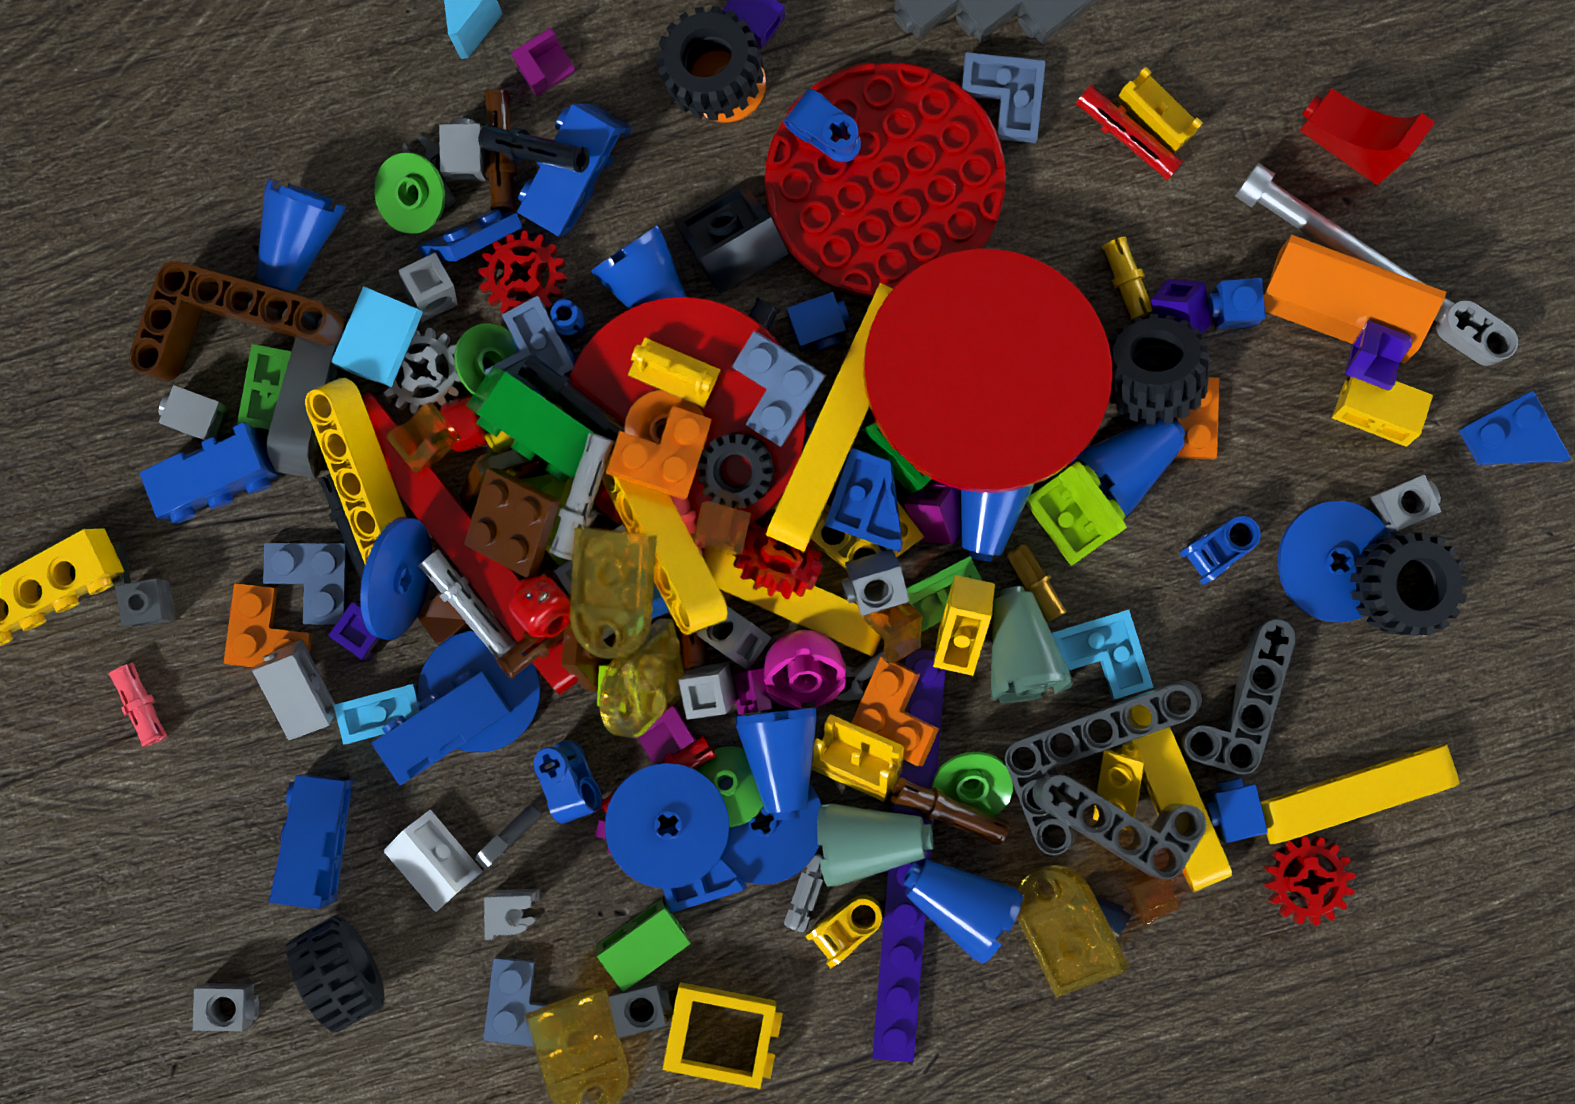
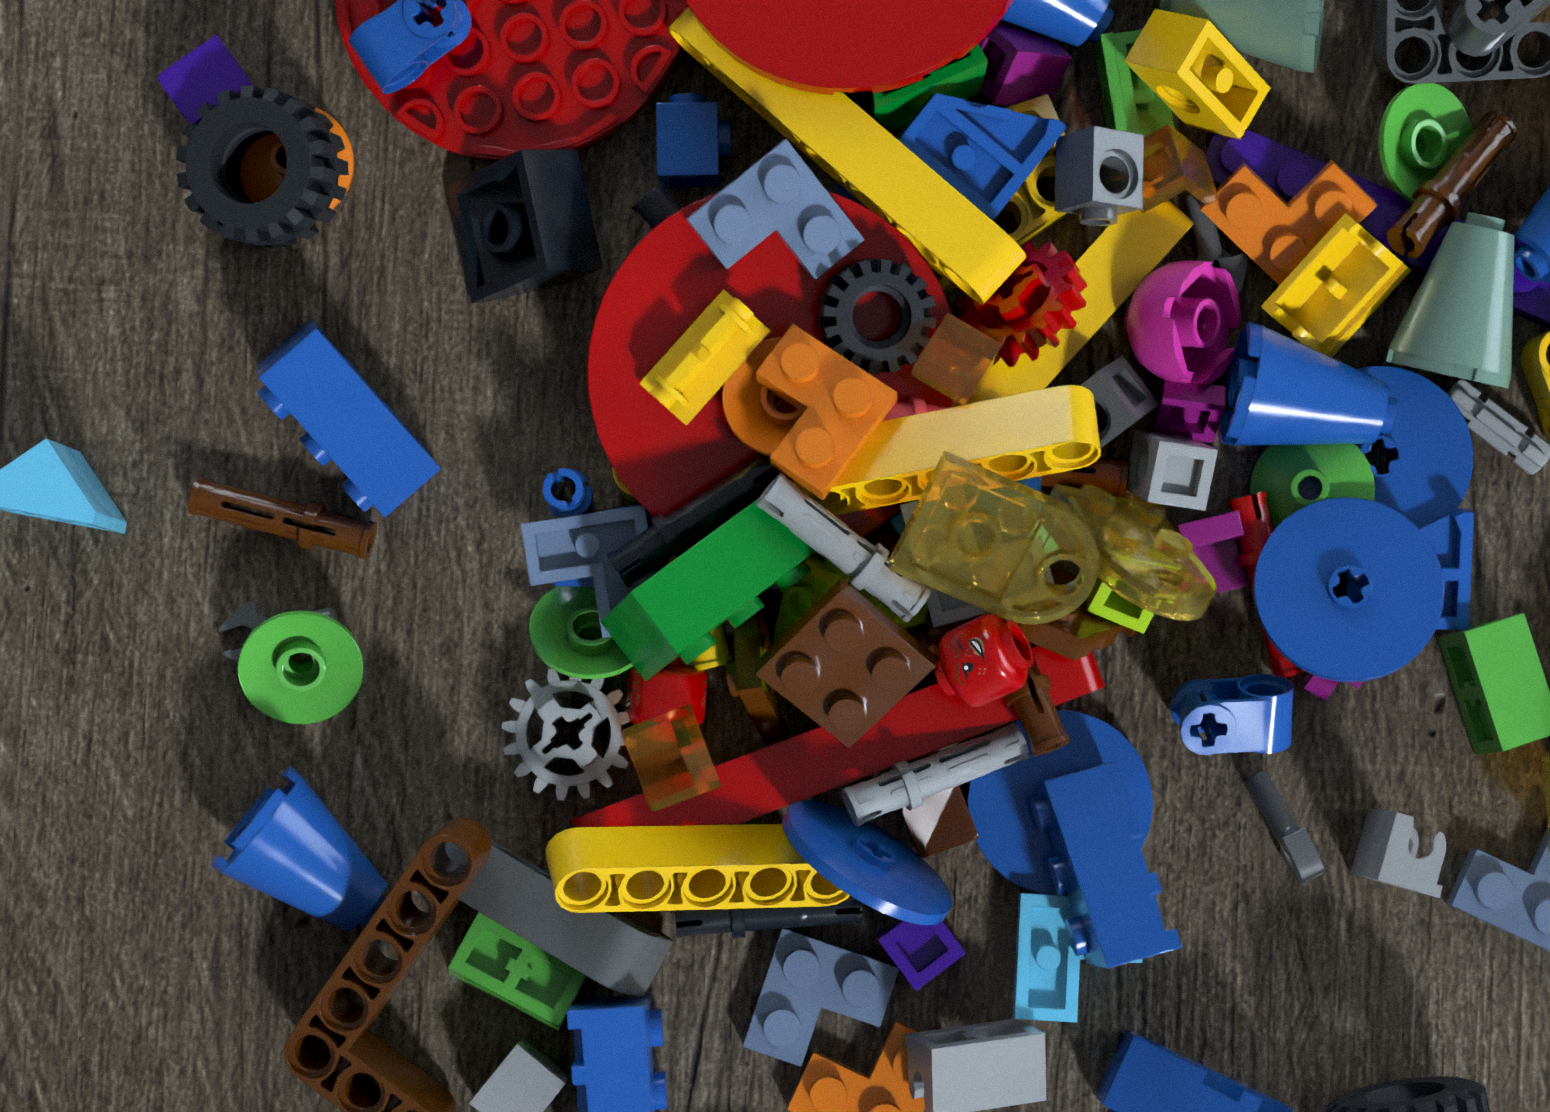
camera: 70 degrees left, 0 degrees up
(376, 337) = (502, 777): medium azure slope -> none
(428, 286) = (450, 682): light grey brick -> none
(432, 860) = (1284, 947): white panel -> none
(460, 151) = (264, 570): light grey brick -> none
(467, 239) = (398, 600): blue wing -> none
(501, 140) = (273, 502): black pin -> none
(534, 264) = (451, 553): red gear -> none
(543, 62) = (174, 414): magenta panel -> none
(641, 271) = (532, 367): blue cone -> none

